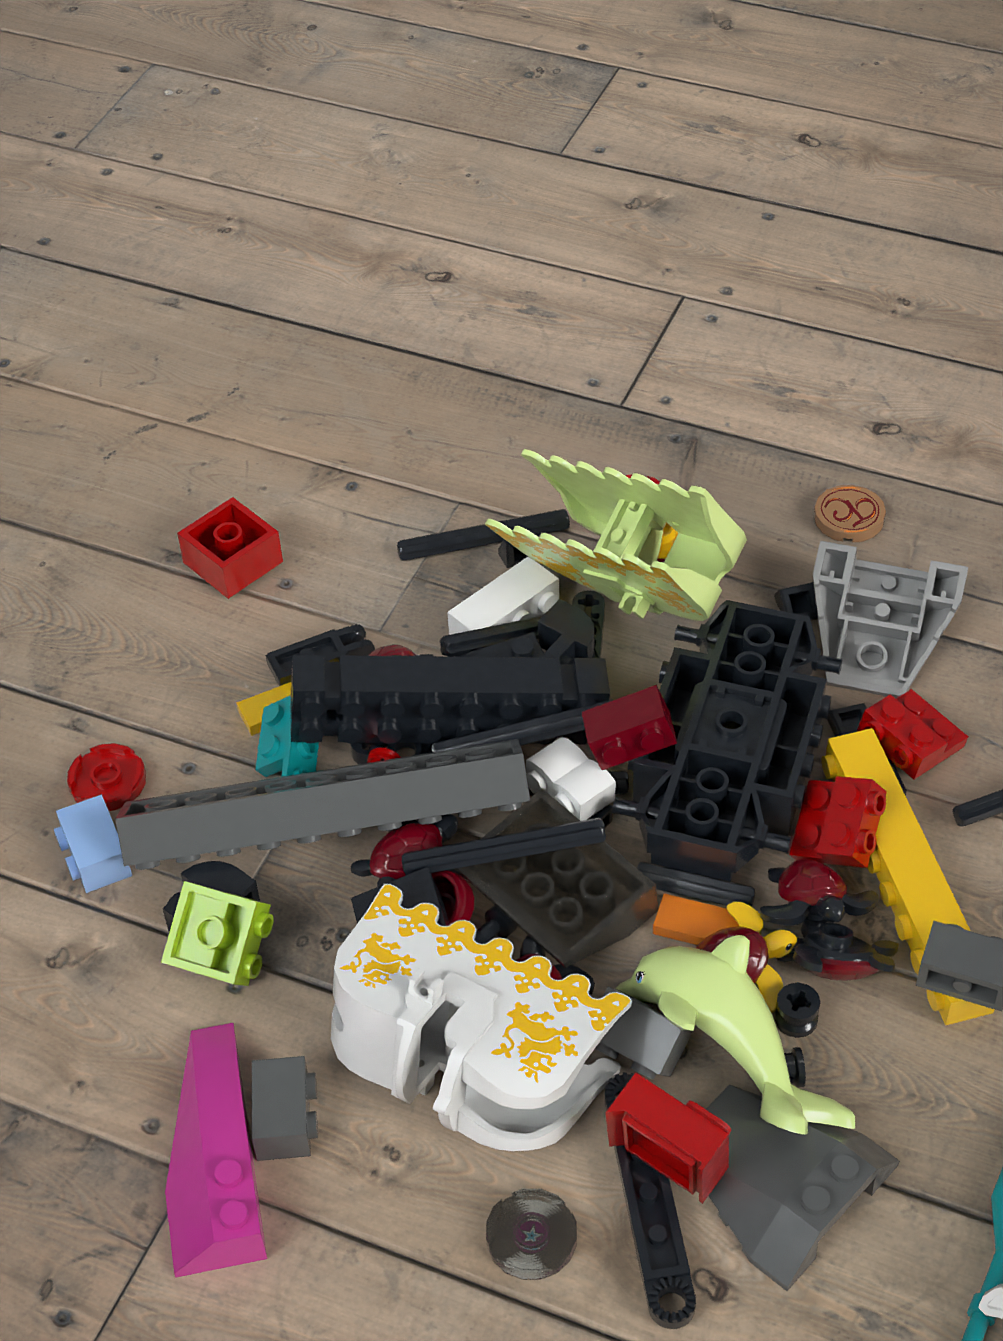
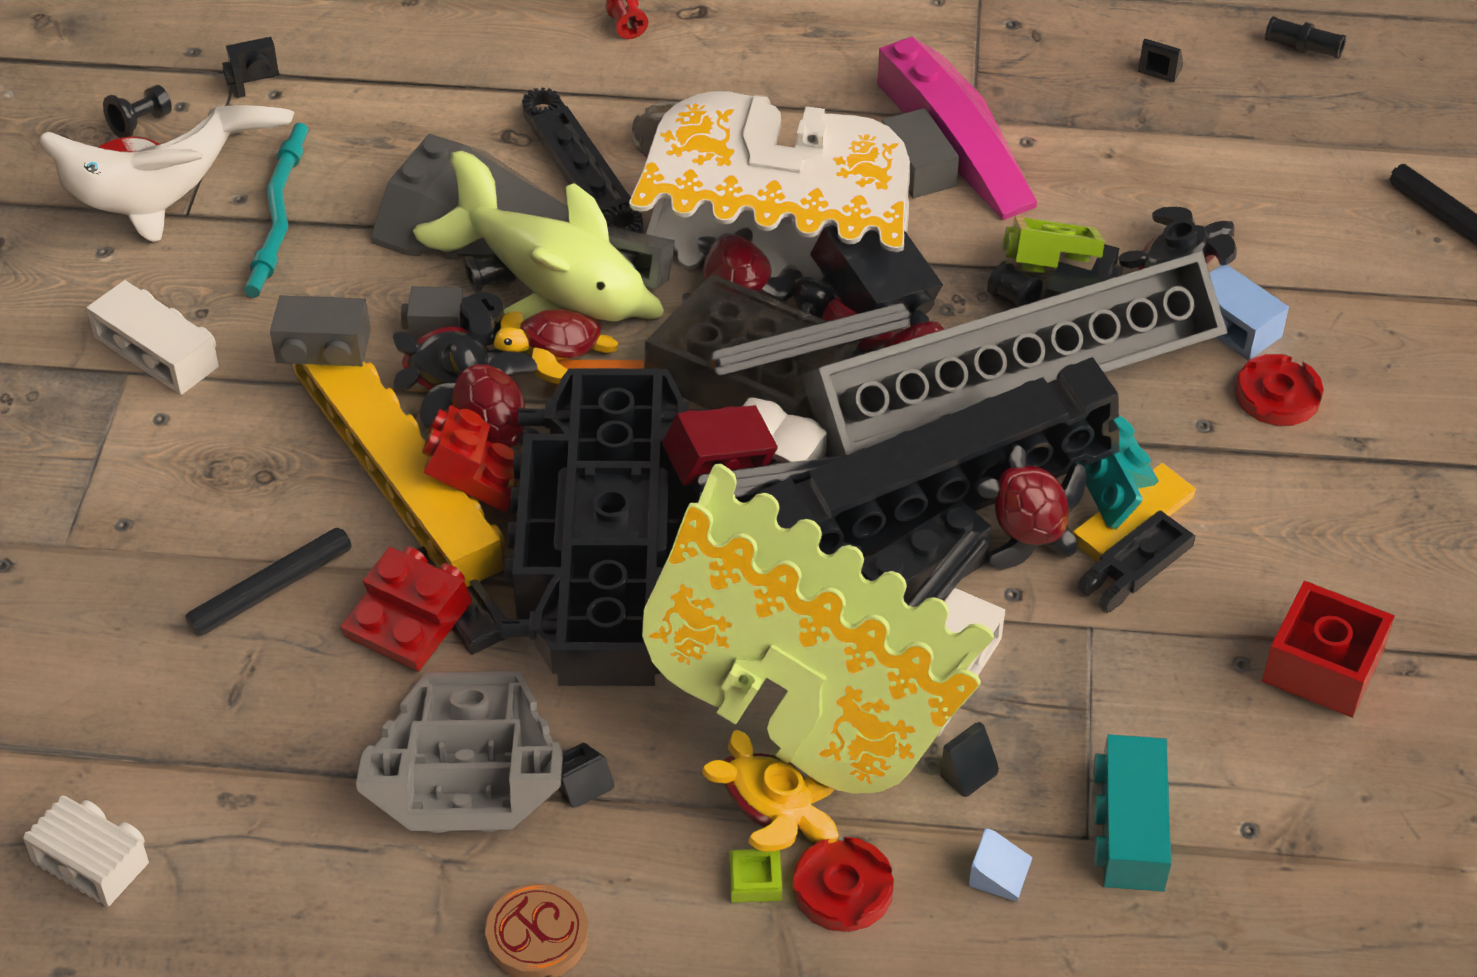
camera: 160 degrees right, 0 degrees up
(96, 914) = (1182, 239): none -> black animal
(284, 928) = (1025, 285): none -> black bush
(425, 490) = (1133, 813): none -> teal brick
(478, 535) = (1020, 778): black axle -> none
(529, 489) = (999, 866): none -> light blue slope
(670, 1136) = (555, 172): red piece -> none
(846, 1018) = (432, 309): none -> dark grey brick

